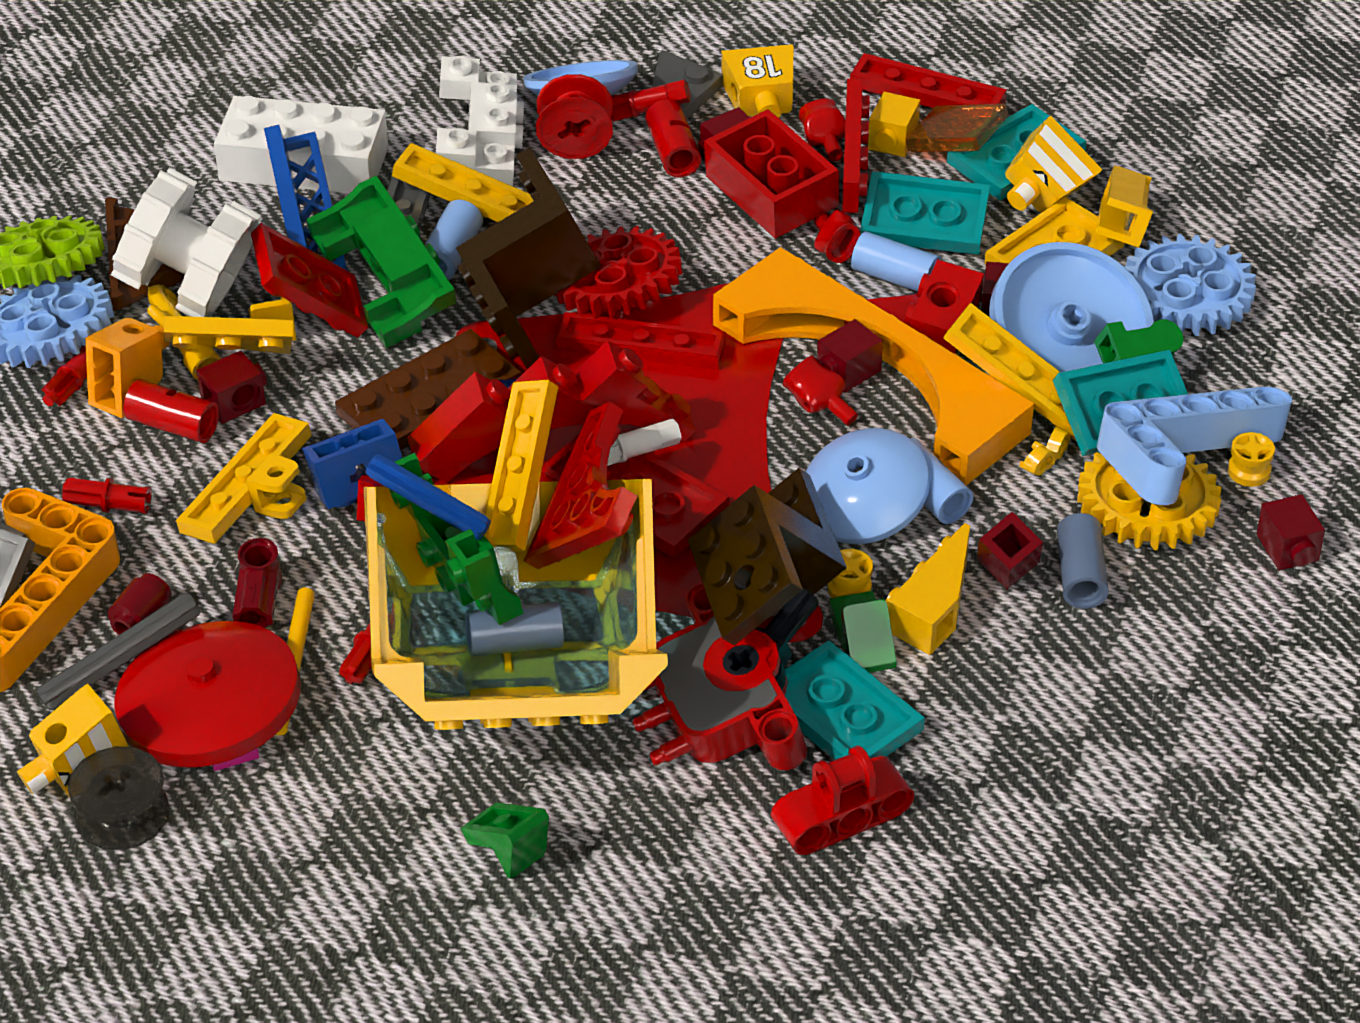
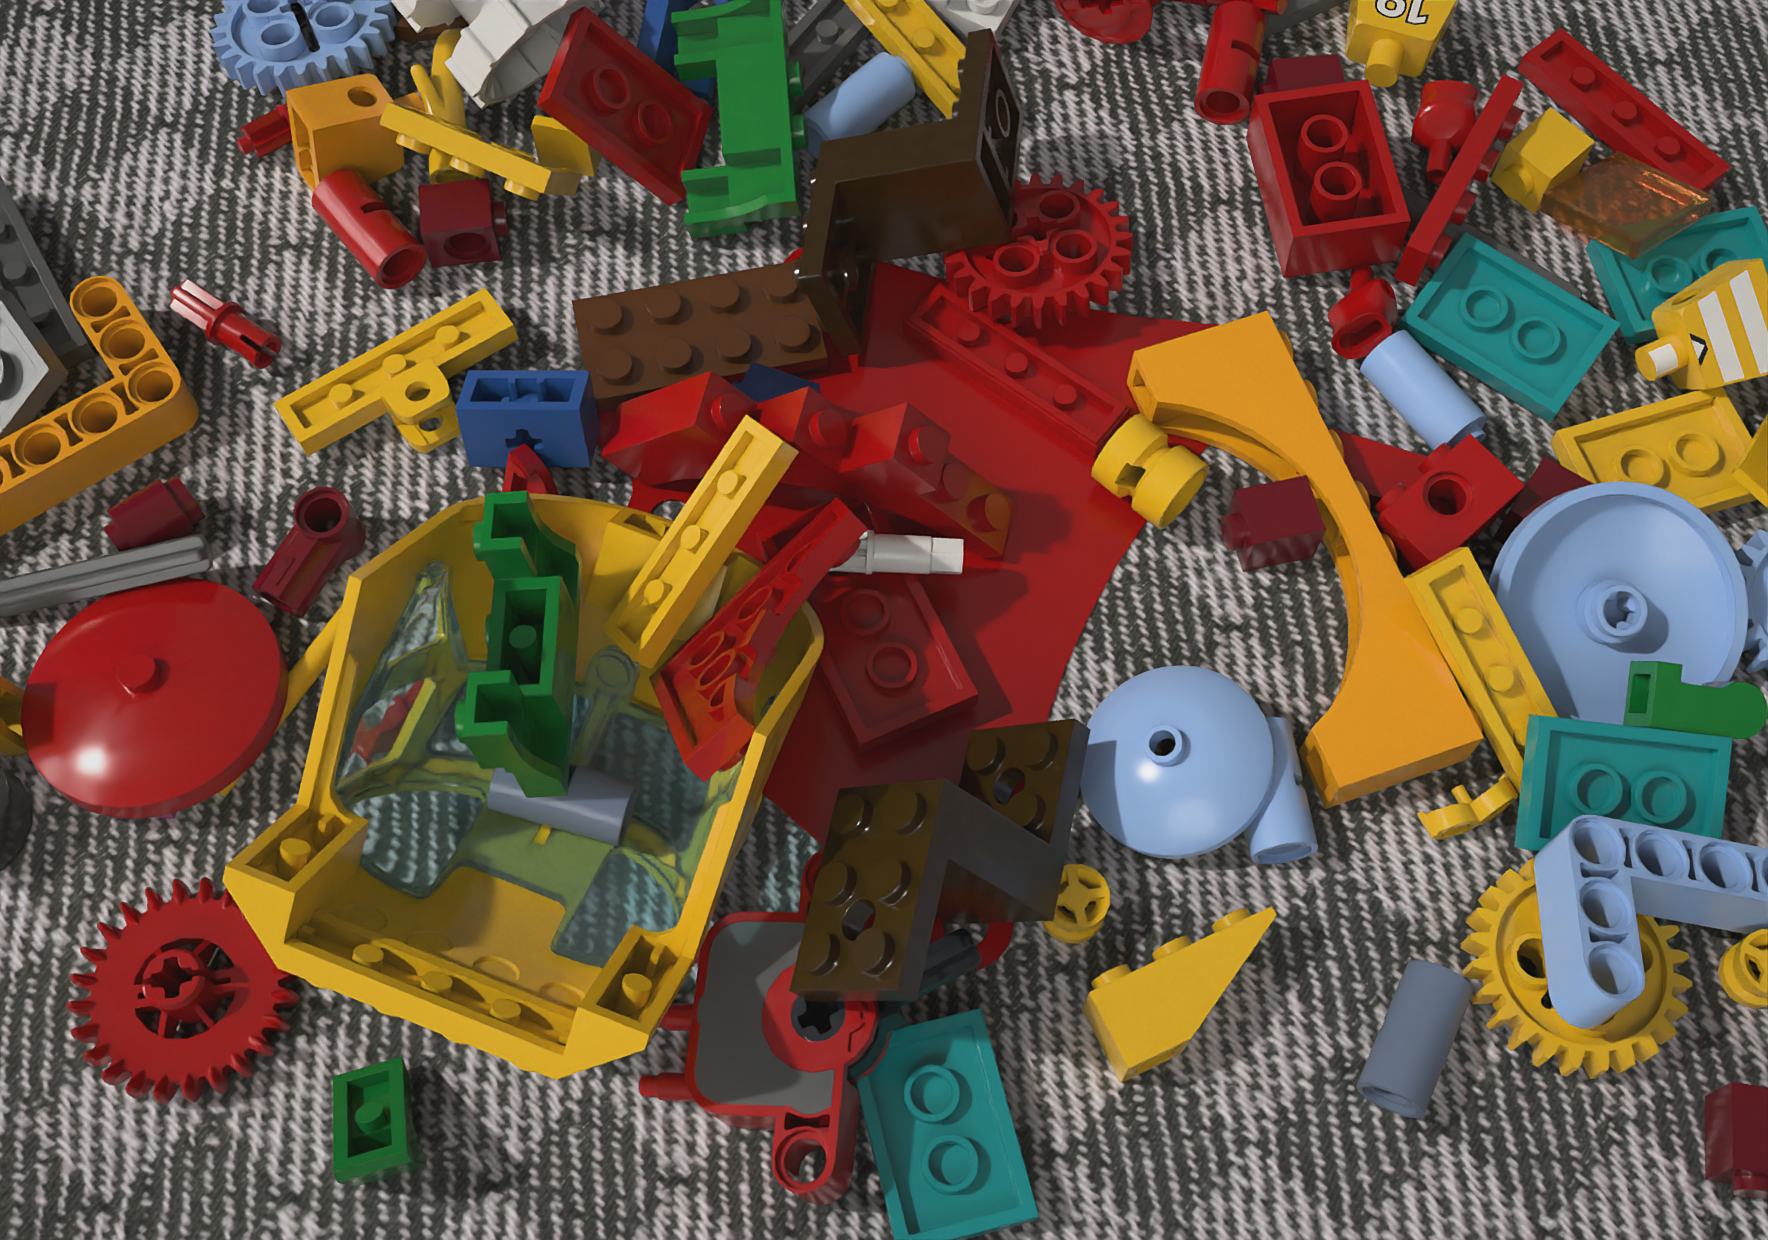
camera: 25 degrees right, 20 degrees up
(336, 810) = (148, 954): none -> red gear
(427, 496) = (496, 580): blue axle -> none
(774, 355) = (1153, 474): none -> yellow wheel
(819, 389) = (1203, 563): red piece -> none
(864, 630) = (1044, 1004): green slope -> none
(1009, 550) = (1313, 982): dark red brick -> none

